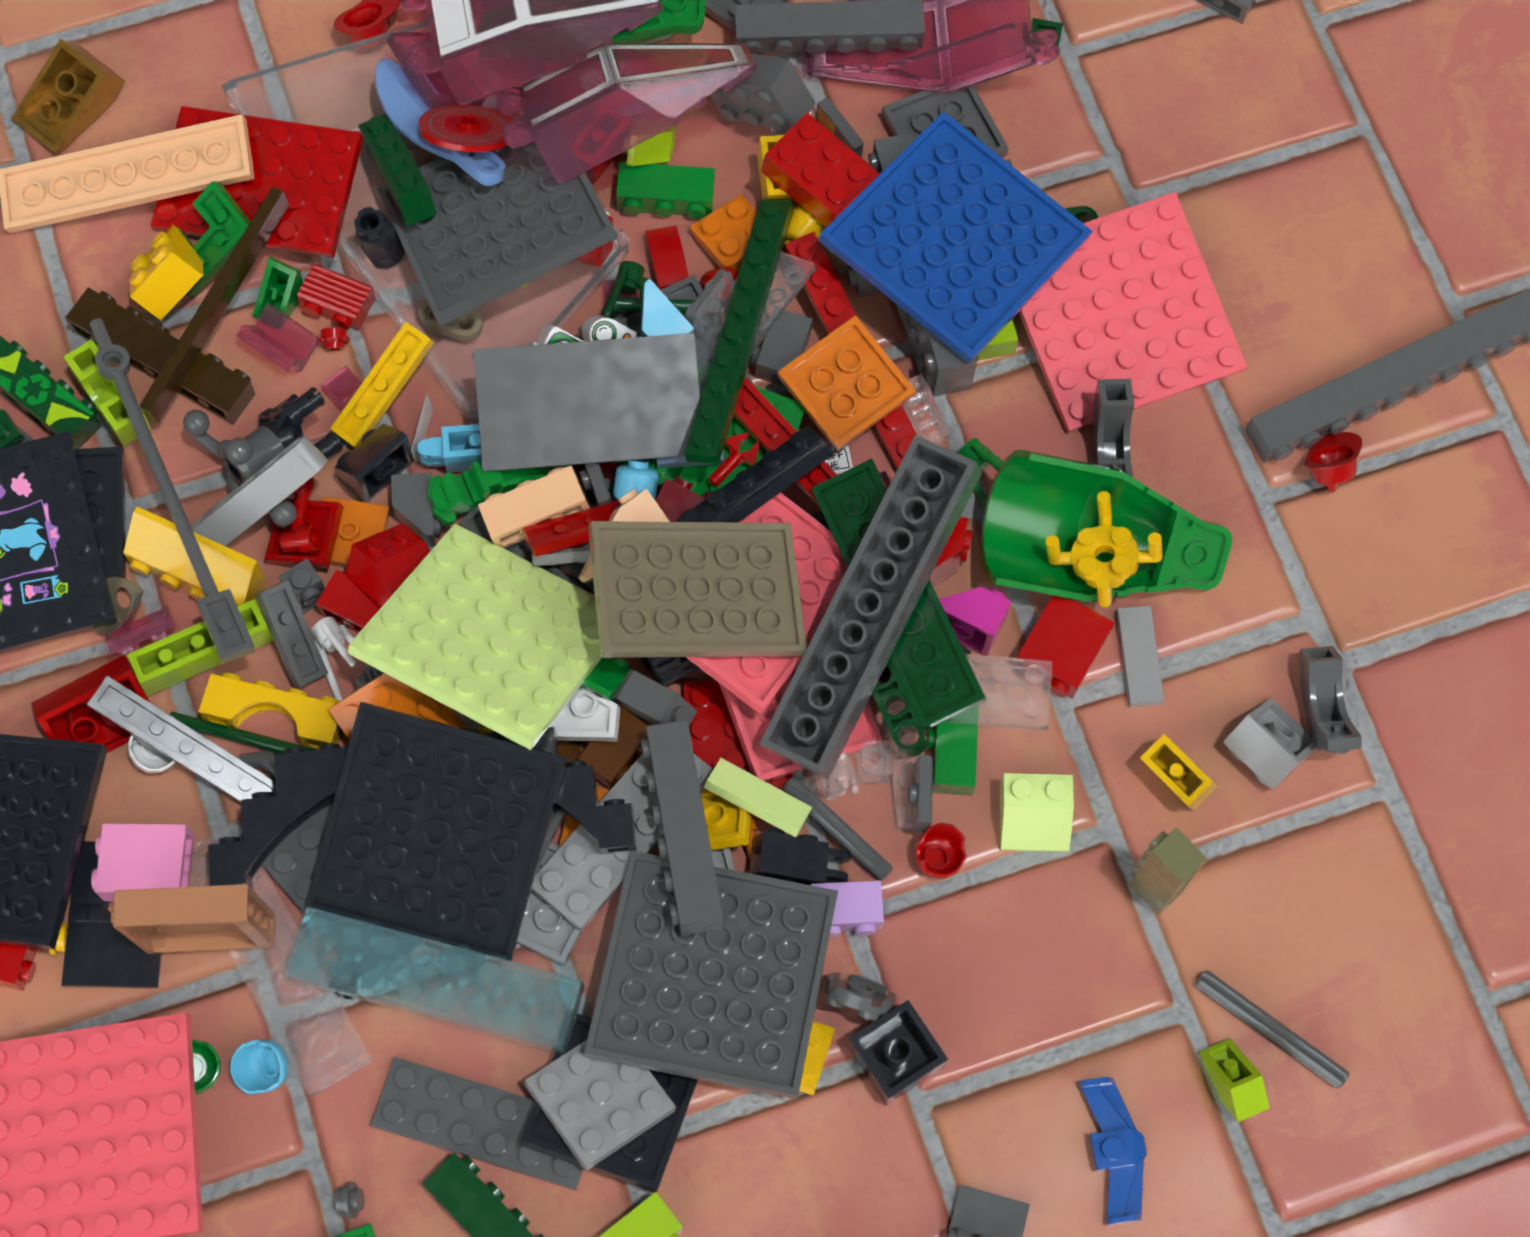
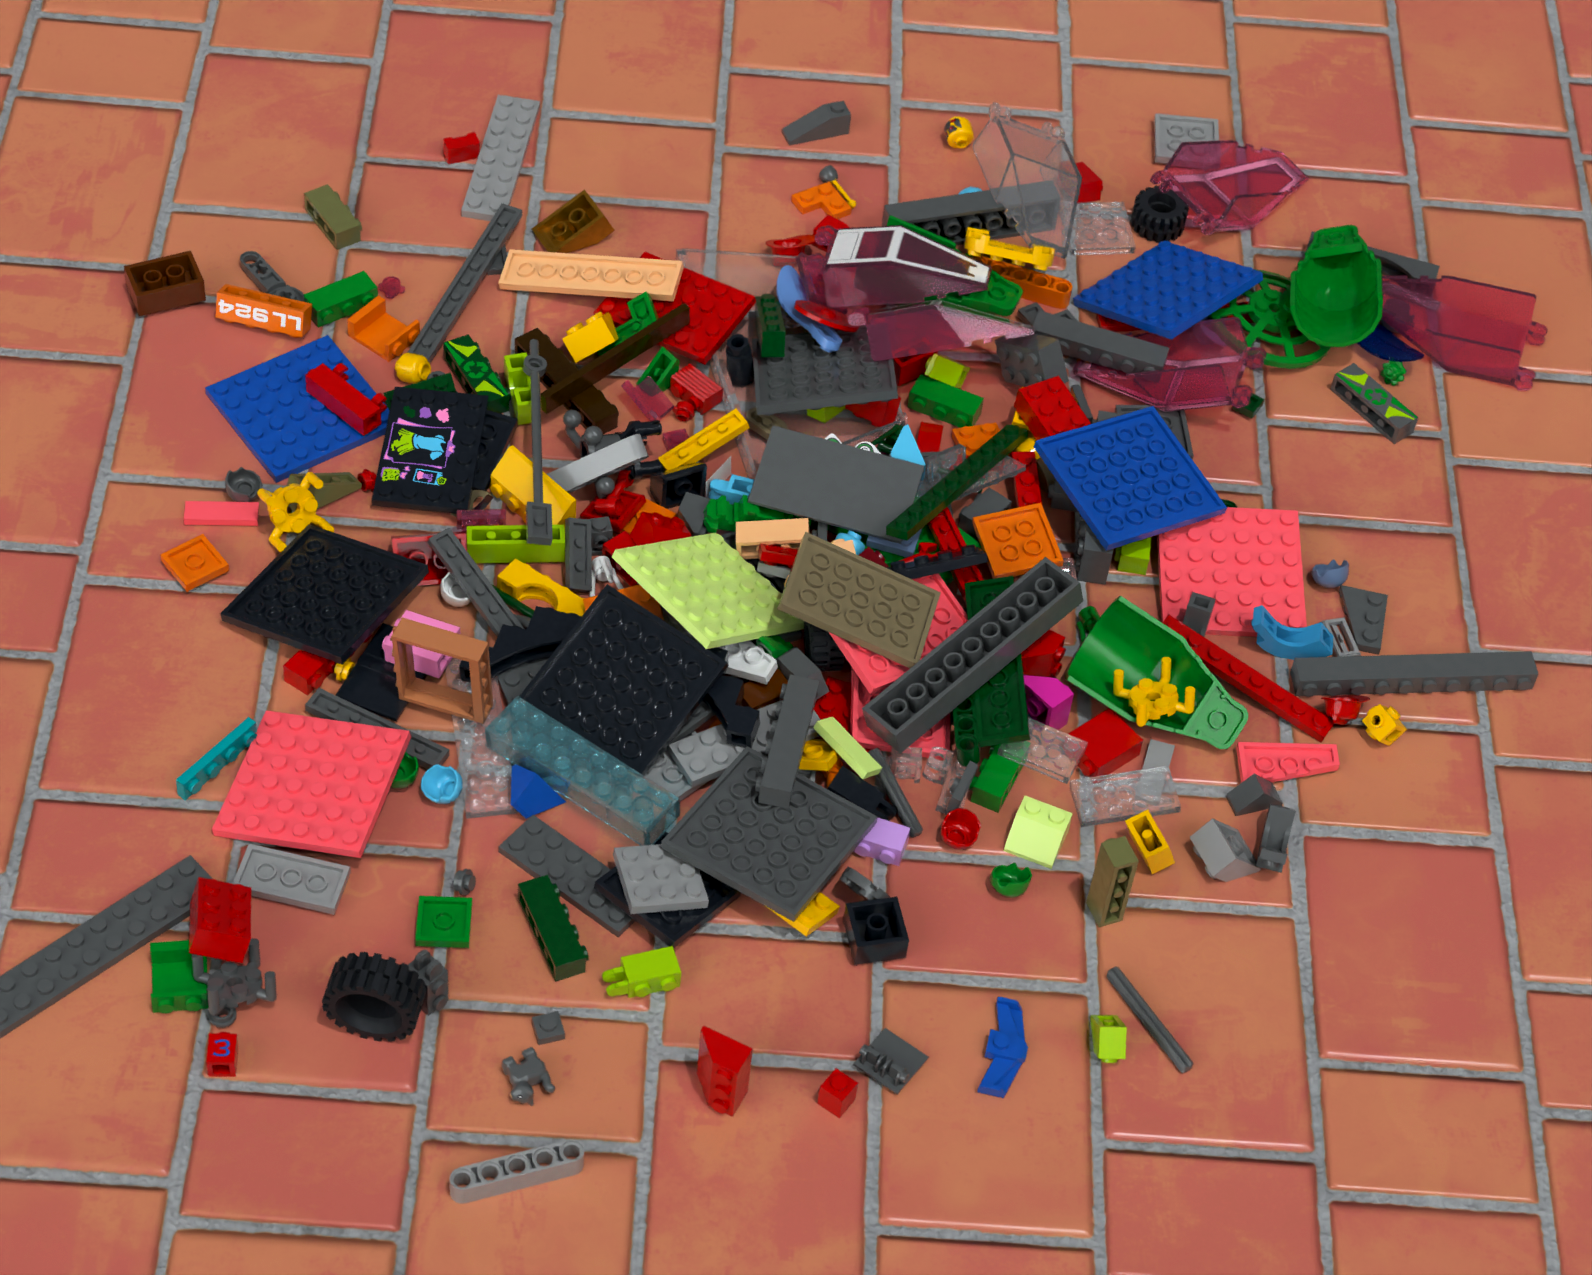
camera: 20 degrees right, 20 degrees down
(106, 1007) = (332, 707): none -> dark grey plate
(378, 1029) = (531, 793): none -> blue slope
(1030, 899) = (1010, 880): none -> green hair
(1120, 711) = (1124, 795): none -> clear plate
(1199, 472) = (1254, 683): none -> red plate
(1236, 387) = (1289, 641): none -> dark azure arch
(1243, 263) = (1331, 574): none -> sand blue hair
(1273, 642) = (1253, 796): none -> dark grey slope
(1277, 361) = (1354, 651): none -> light grey tile
(1285, 576) = (1285, 760): none -> coral wing
(1307, 307) = (1365, 616): none -> dark grey wing
(1391, 470) = (1384, 724): none -> yellow brick

